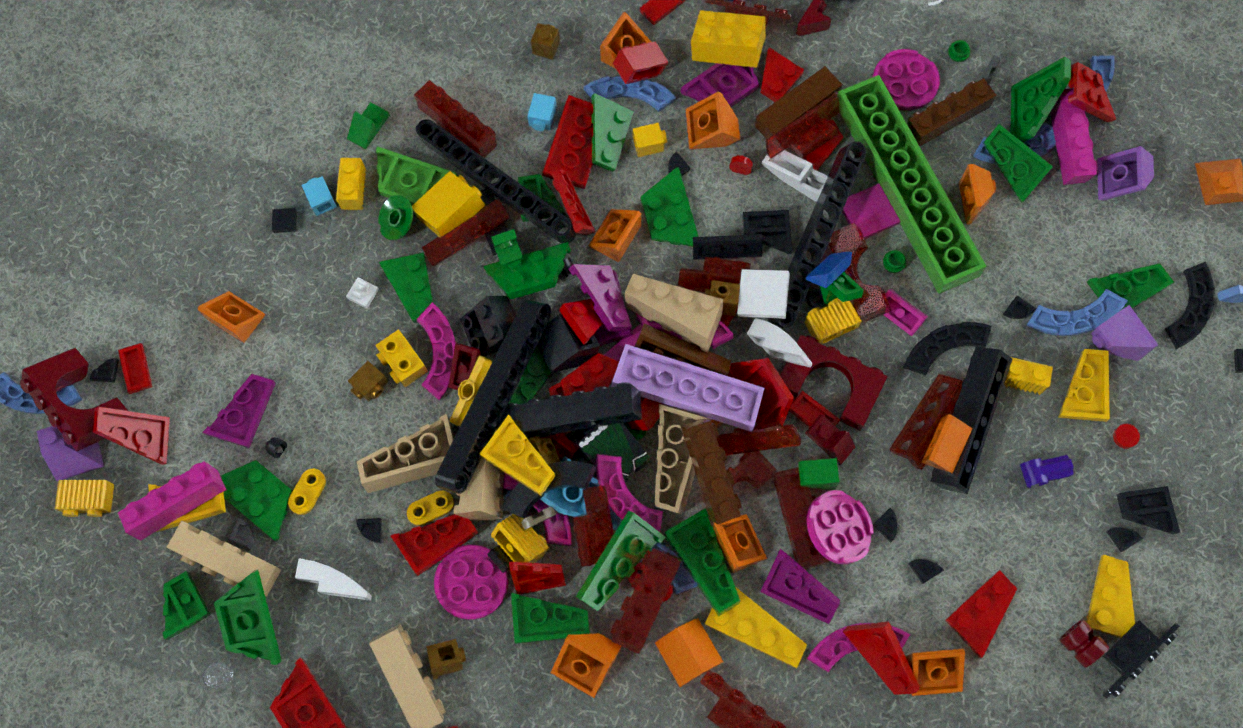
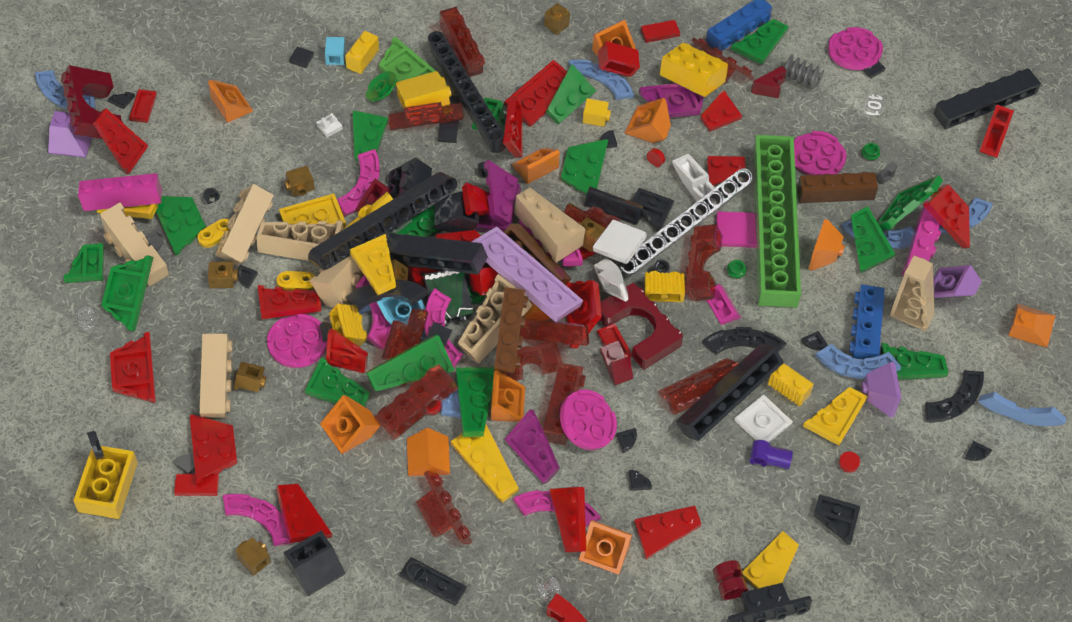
camera: 20 degrees right, 15 degrees down
(84, 497) = (61, 168): yellow brick -> none
(243, 414) = (199, 166): magenta wing -> none
(330, 580) = (198, 293): white slope -> none
(336, 471) = (244, 224): none -> tan wedge
(344, 544) = (222, 275): none -> pearl gold brick
(367, 125) = (395, 21): green slope -> none
(401, 358) = (332, 176): yellow brick -> none
(405, 414) = (314, 210): none -> yellow wing
(506, 247) = (449, 132): green slope -> none
(530, 273) = (457, 159): green wing -> none
(538, 518) = (369, 317): dark tan tile -> none
(542, 112) = (527, 63): medium azure brick -> none
(629, 502) = (443, 332): none -> black tile
(798, 102) = (721, 135): reddish brown brick -> none
(807, 131) = (717, 151): clear red bracket -> none
(819, 474) = (592, 376): green slope -> none
(830, 269) = (680, 247): blue slope -> none
(843, 289) = (679, 260): green slope -> none
(947, 444) = (698, 393): orange slope -> none
(1015, 431) = (763, 420): none -> white tile
(1063, 262) = (867, 322): none -> blue brick
(1104, 210) = (916, 295): none -> tan wedge
(1123, 537) = (806, 528): black tile -> none

